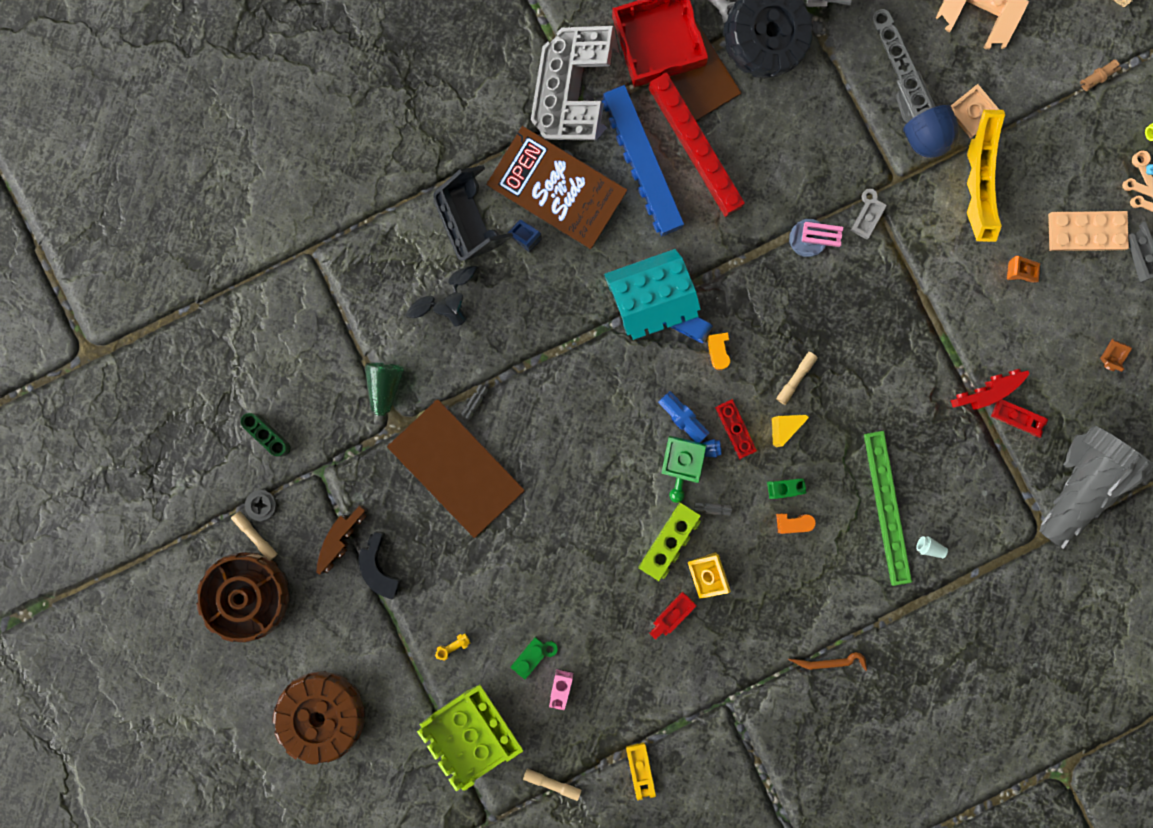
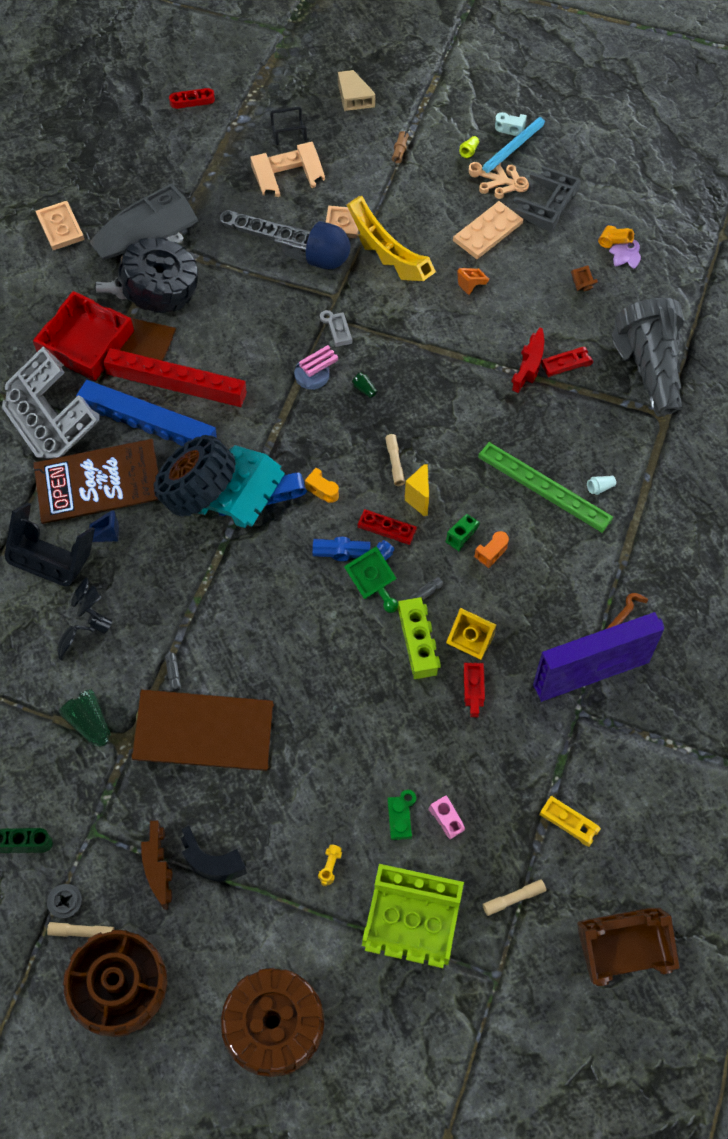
camera: 45 degrees left, 25 degrees down
(624, 261) = (194, 475): none -> black wheel
(776, 691) = (597, 656): none -> dark purple panel
(838, 289) = (364, 384): none -> dark green cone

